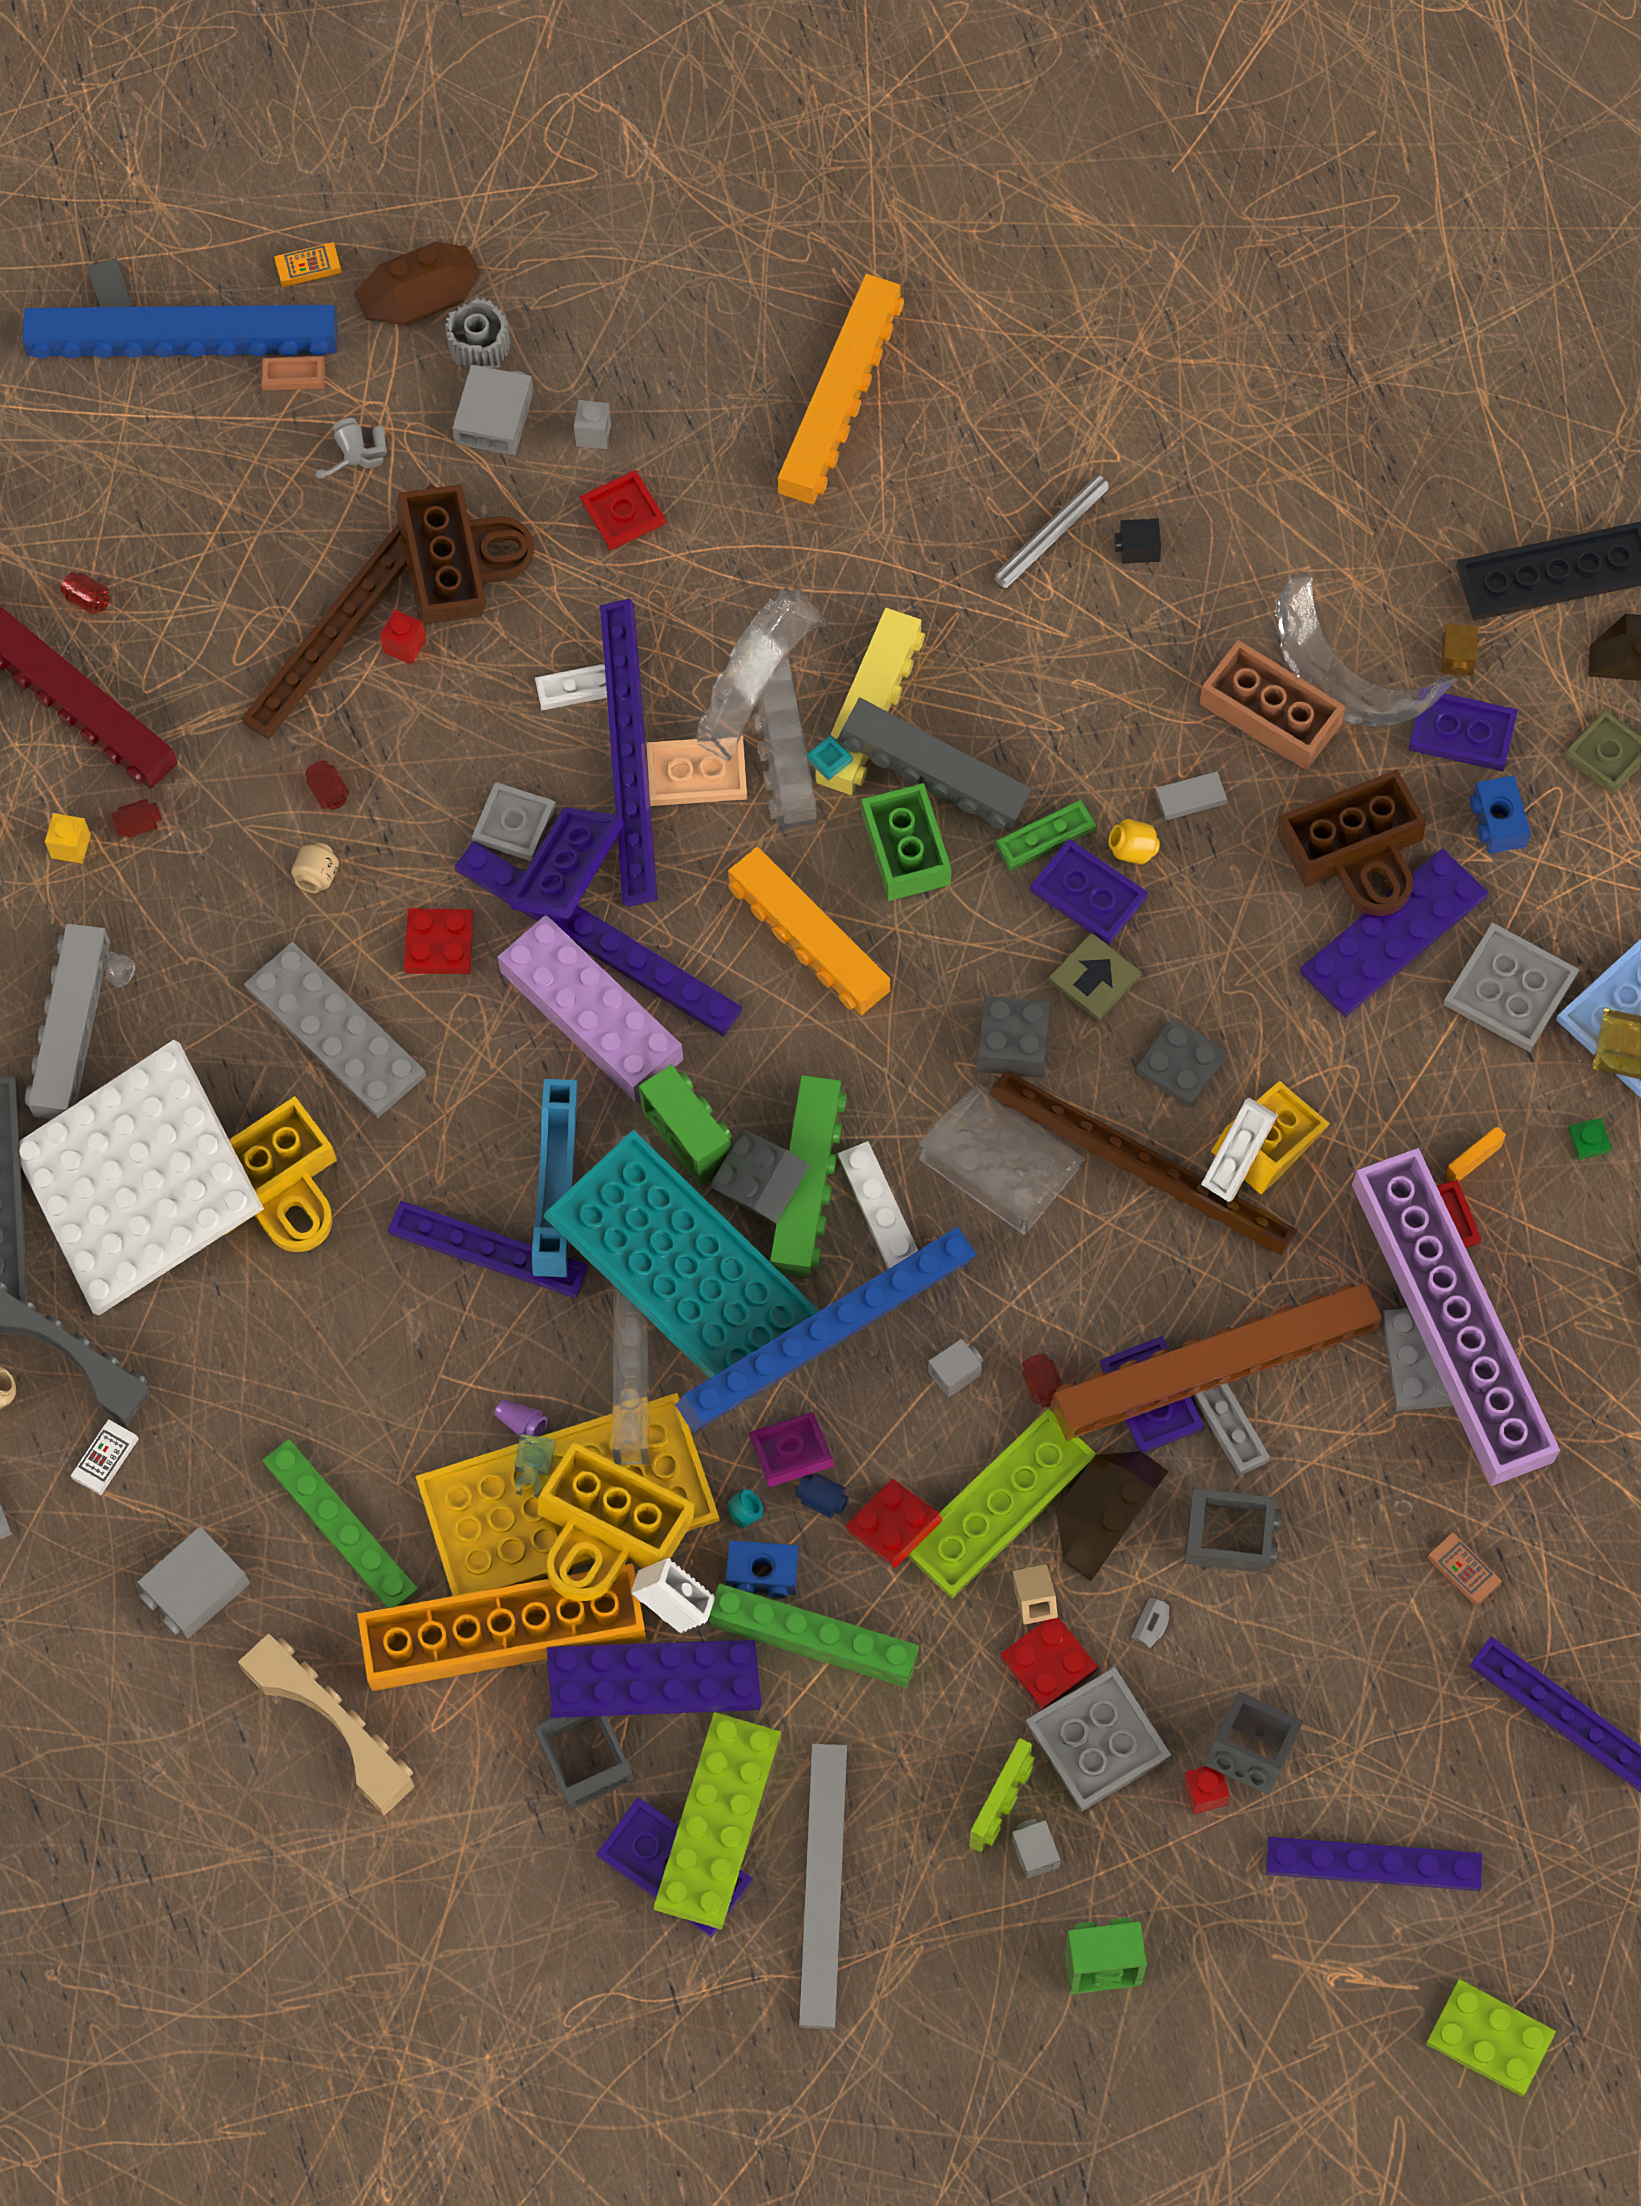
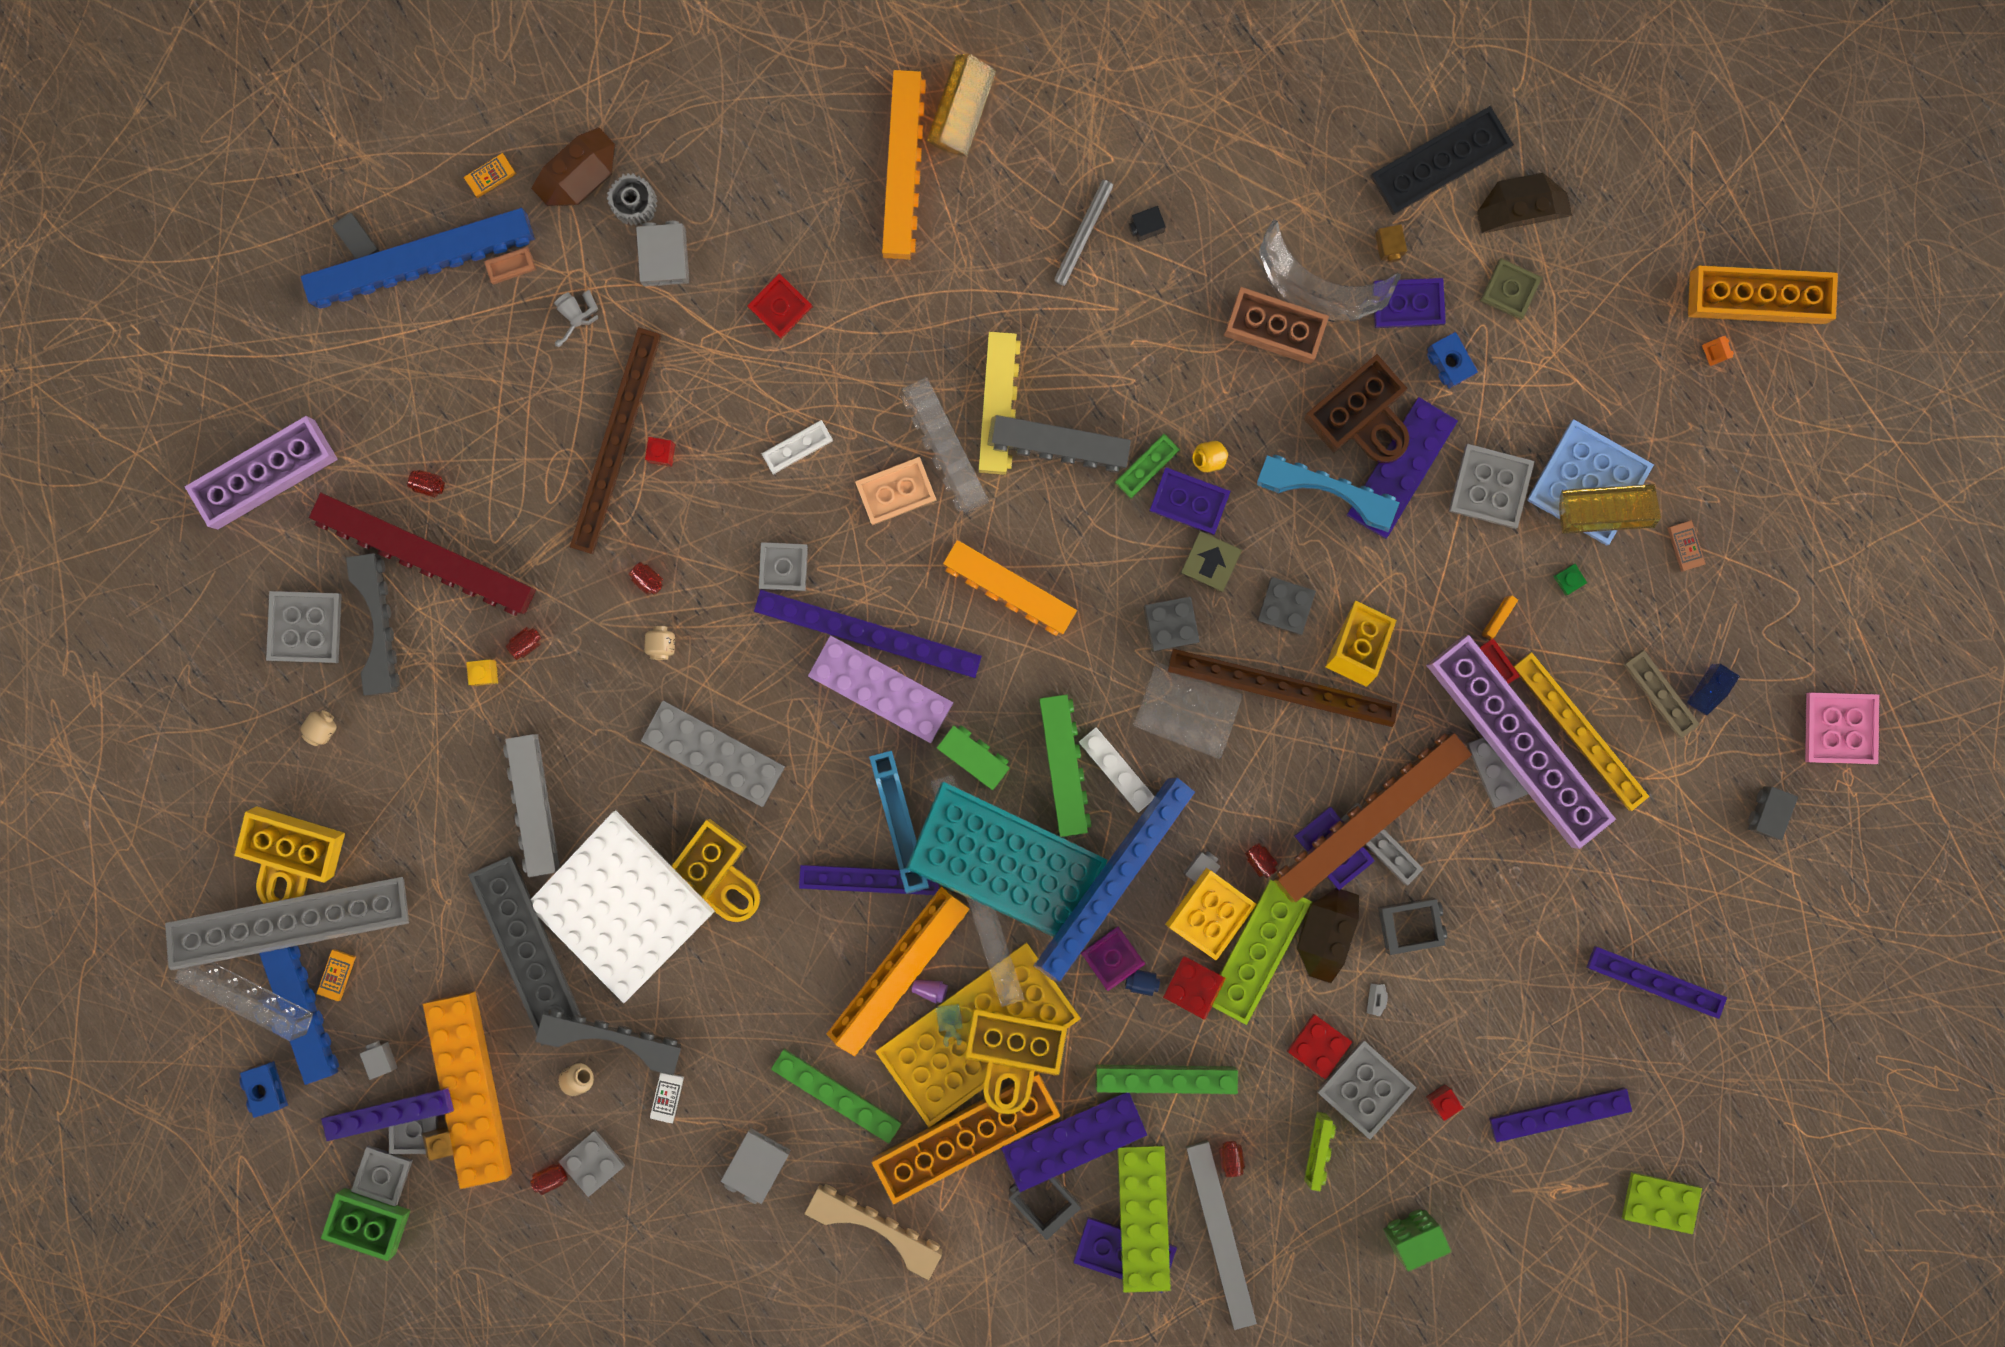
camera: 25 degrees left, 20 degrees up
(119, 970) = (552, 757): clear tile -> none
(438, 941) = (761, 668): red plate -> none
(450, 552) = (672, 380): reddish brown brick -> none
(484, 1377) = (897, 971): none -> light orange brick
(566, 862) = (831, 591): dark purple plate -> none
(592, 424) = (737, 246): light grey brick -> none
(628, 752) = (845, 492): dark purple plate -> none
(673, 1595) = (1071, 1089): white brick -> none
(745, 1508) = (1095, 1005): teal tile -> none
(746, 1556) = (1129, 1033): blue brick -> none
(751, 667) = (918, 407): clear windscreen -> none
(759, 1175) = (1035, 781): dark grey brick -> none
(829, 757) = (986, 459): teal tile -> none
(872, 1777) = (1232, 1159): none -> clear red brick
(906, 842) = (1056, 504): bright green brick -> none
(940, 340) = (961, 105): none -> clear yellow brick
(948, 1425) = (1211, 914): none -> yellow plate
(1035, 1594) = (1299, 1008): tan brick -> none
(1035, 1848) = (1348, 1173): light grey brick -> none
(1191, 796) = (1237, 407): light grey tile -> none
(1227, 894) = (1282, 476): none -> dark azure arch
(1239, 1149) = (1349, 668): white tile -> none
(1261, 1723) = (1473, 1049): dark grey window -> none
(1464, 1569) = (1566, 903): nougat tile -> none
(1549, 1341) = (1580, 732): none -> yellow plate

